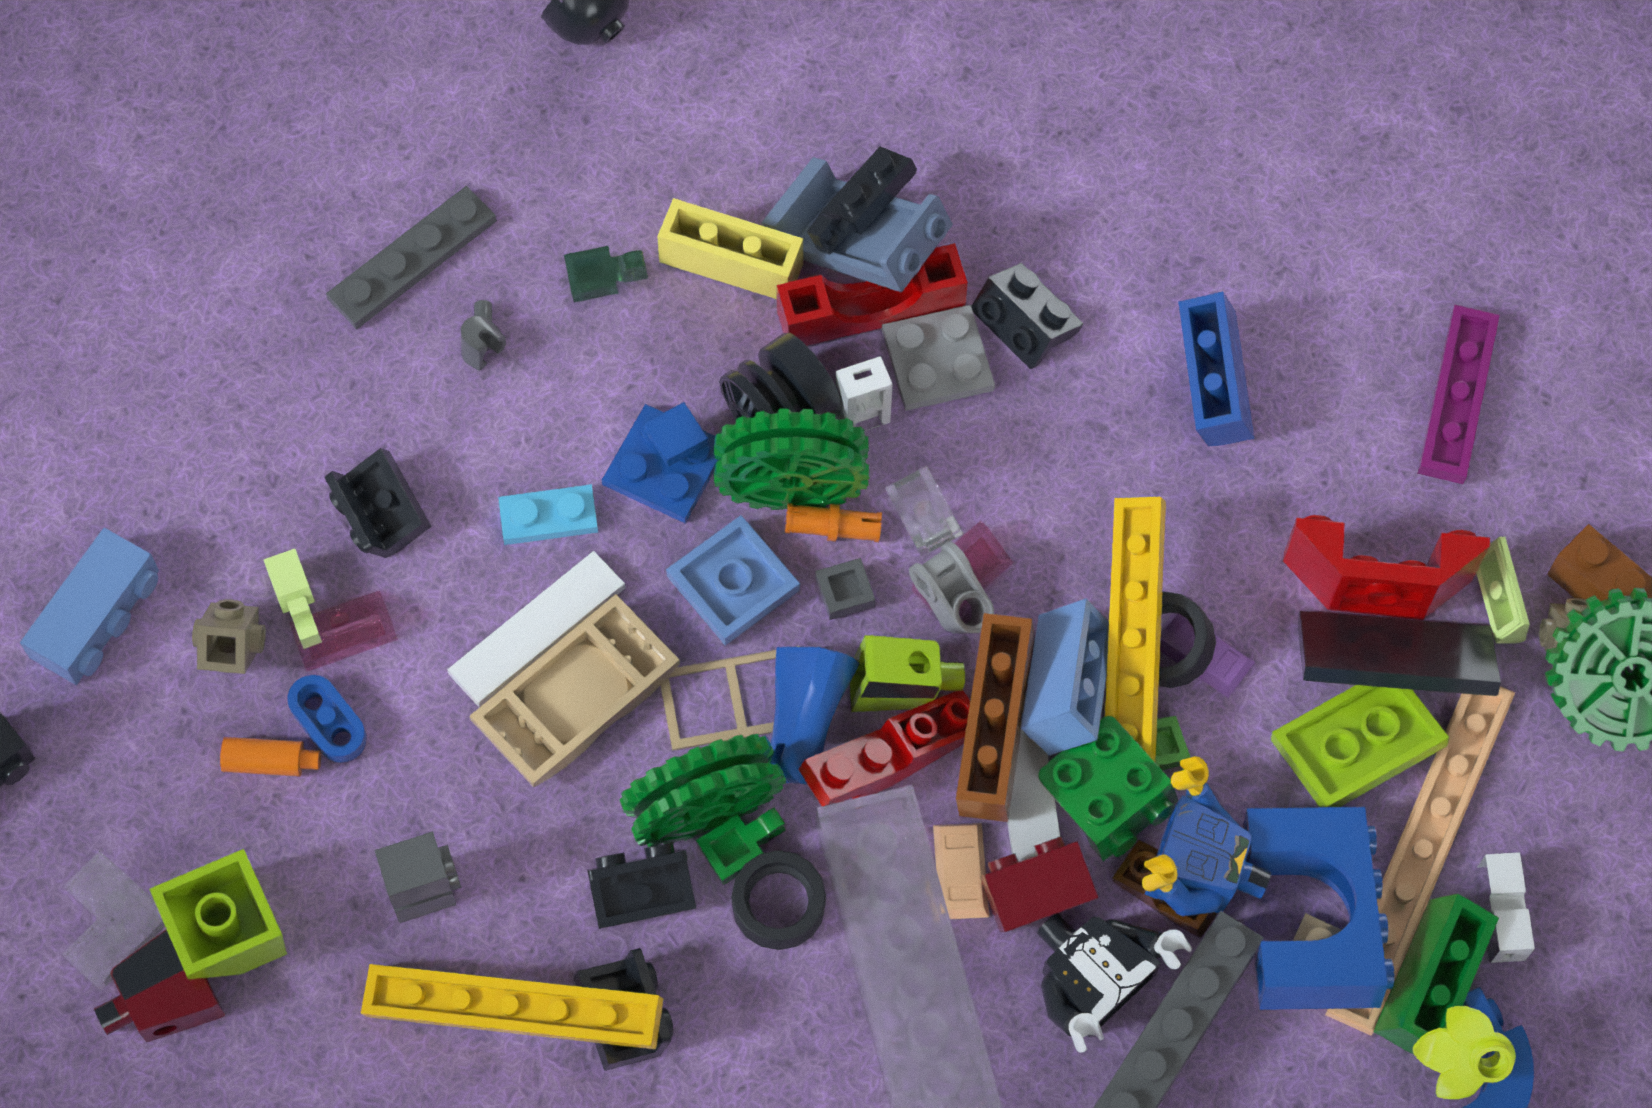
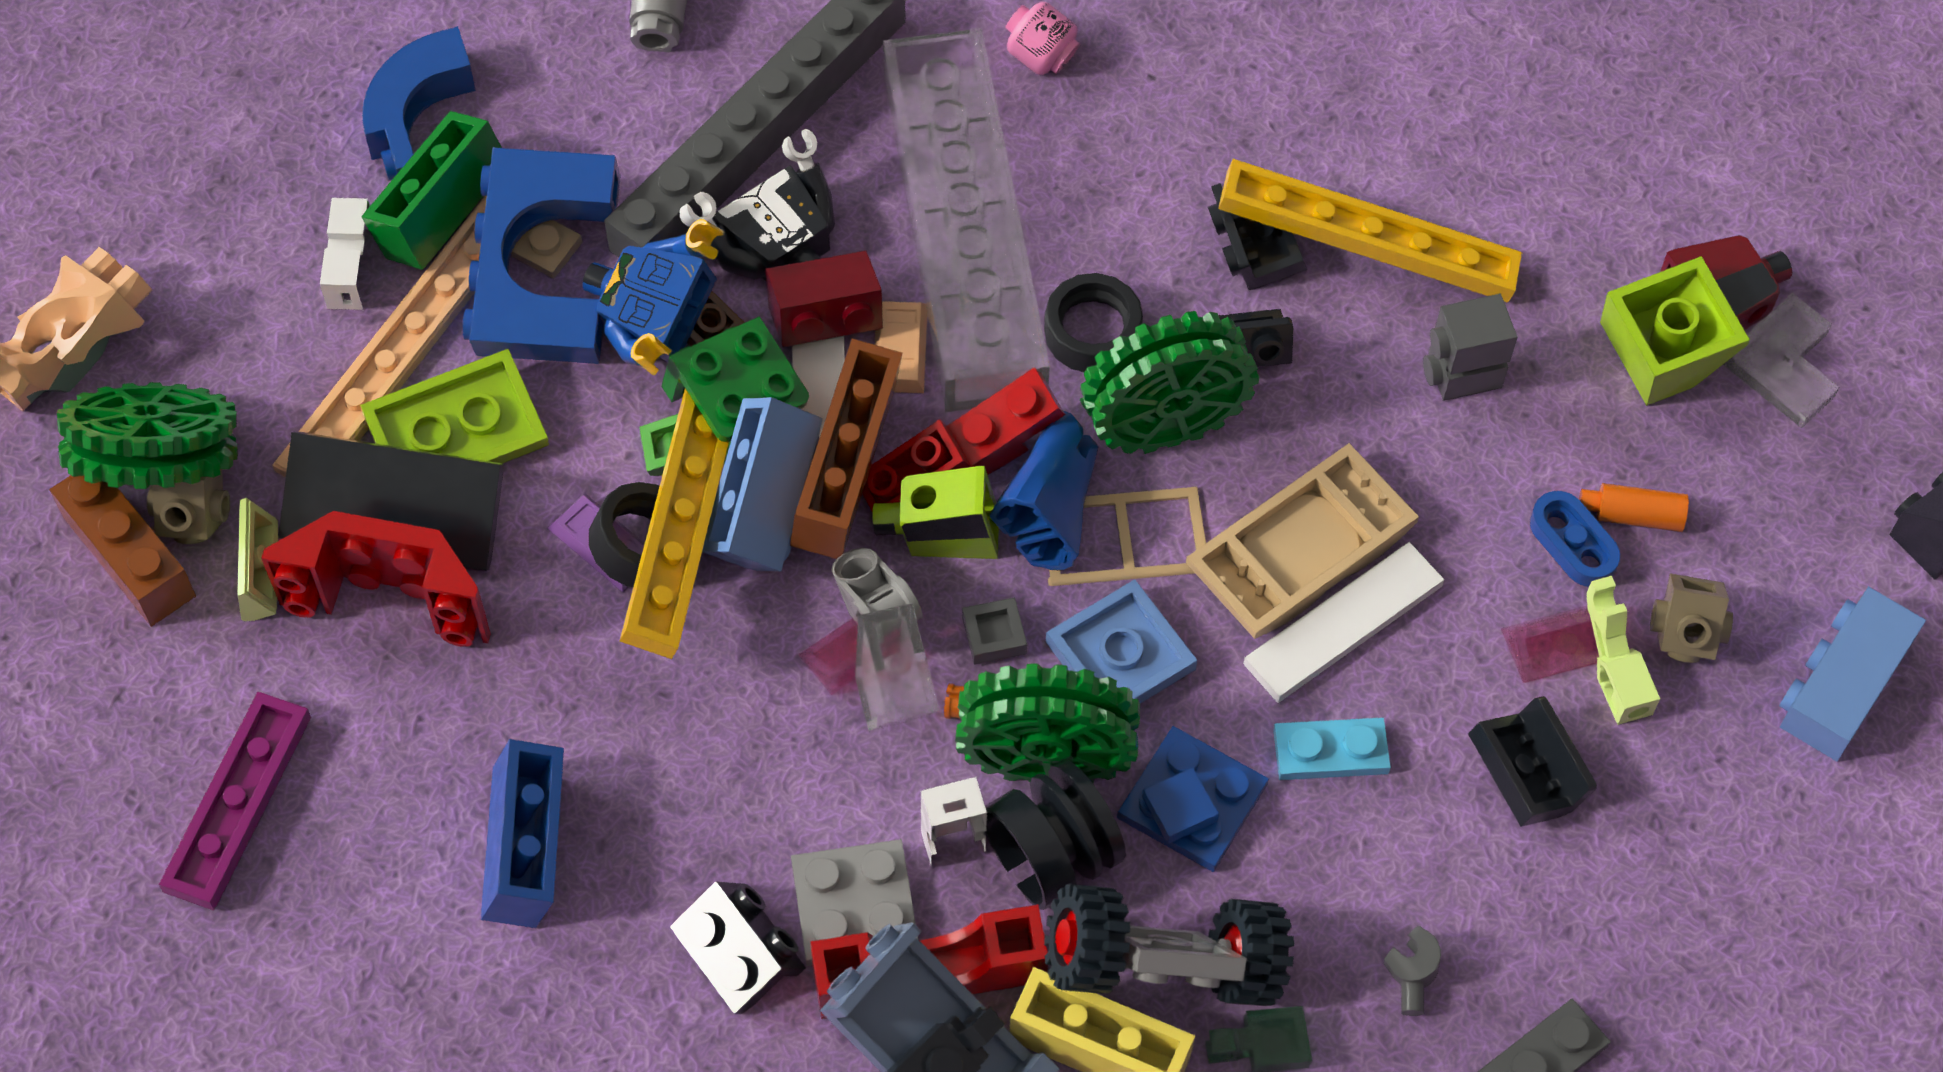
camera: 175 degrees left, 5 degrees down
(680, 295) = (1238, 960): none -> black plate
(1458, 1053) = (415, 96): neon yellow plate -> none

